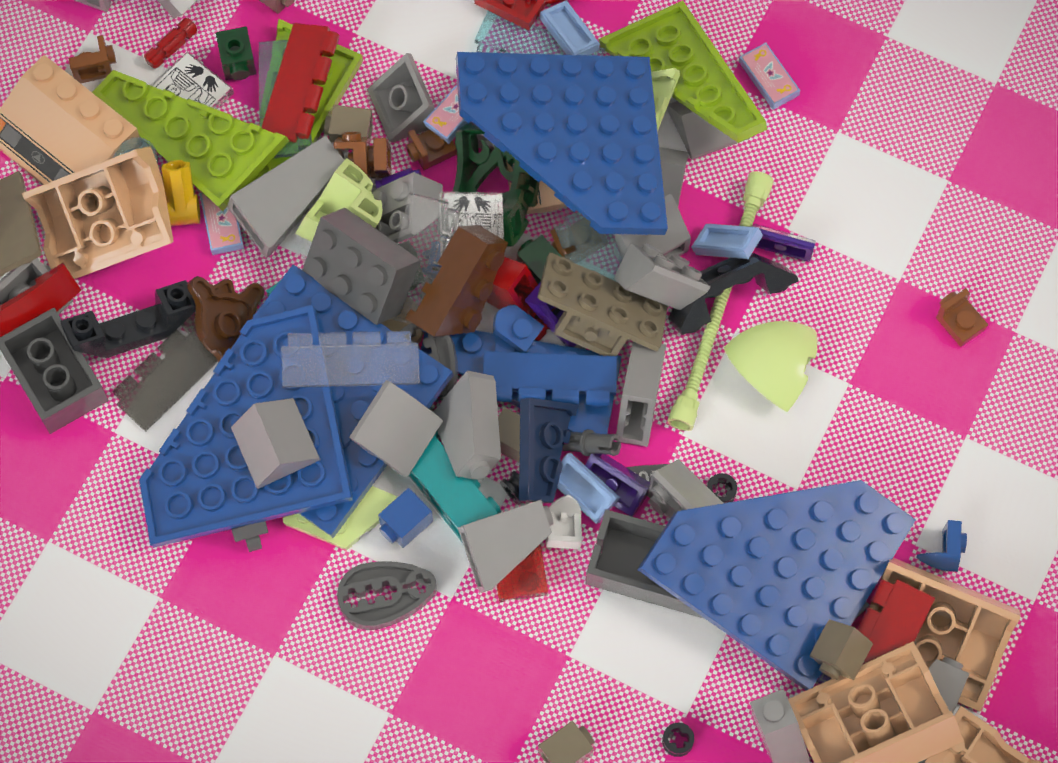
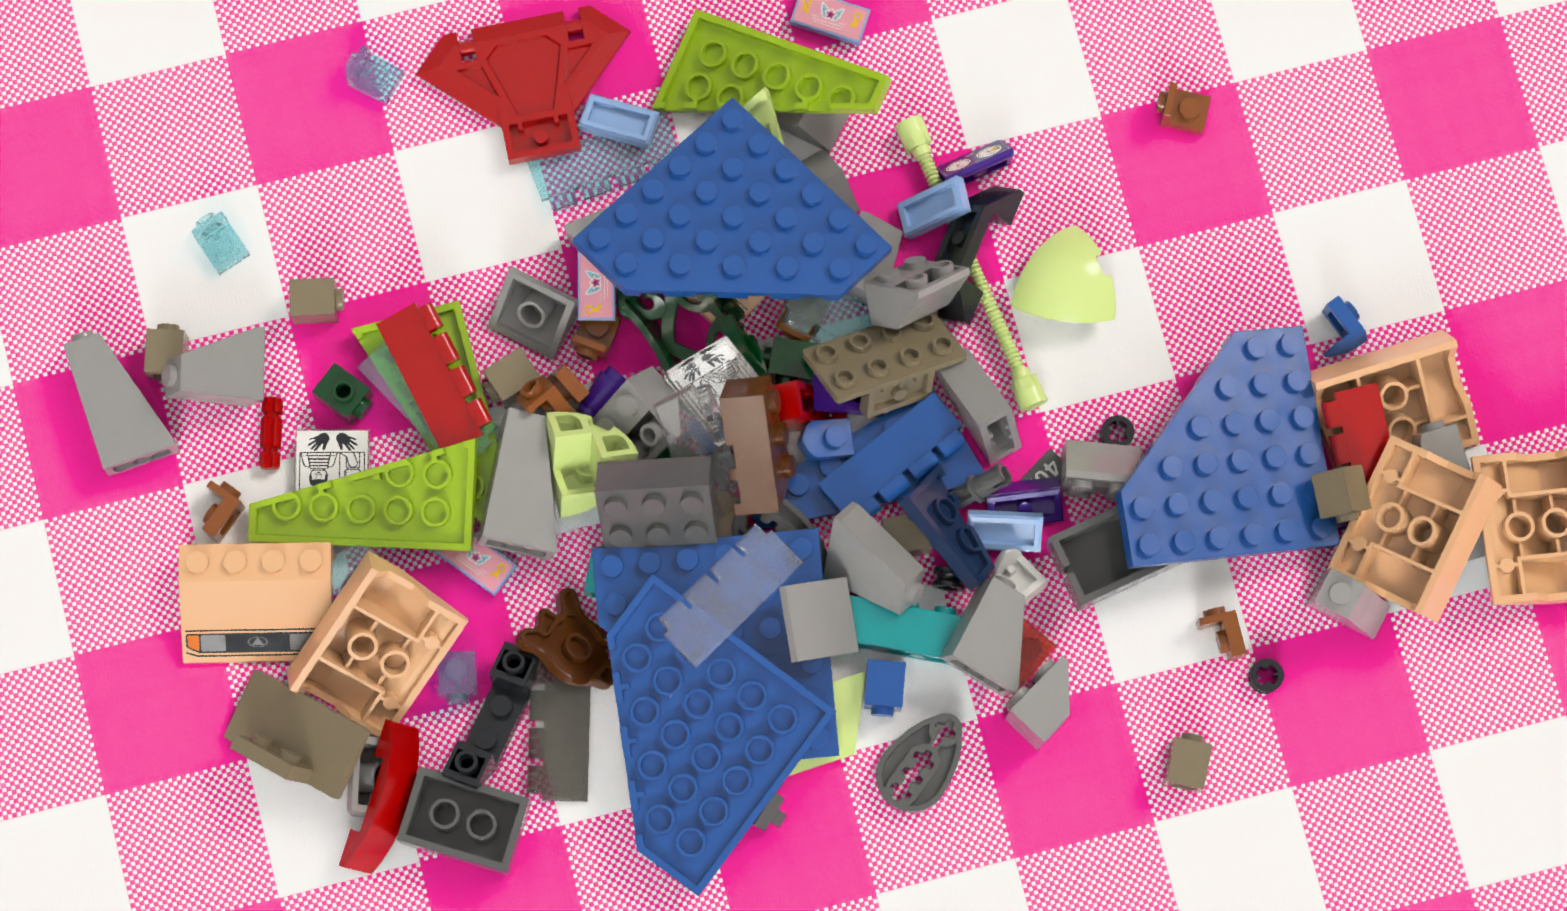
camera: 45 degrees left, 10 degrees up
(139, 282) = (458, 677): none -> clear light blue bracket
(179, 192) = (422, 565): yellow piece -> none
(274, 440) = (730, 720): light grey slope -> none
(501, 618) = (1043, 708): none -> light grey slope
(675, 690) = (1229, 637): none -> dark orange bracket

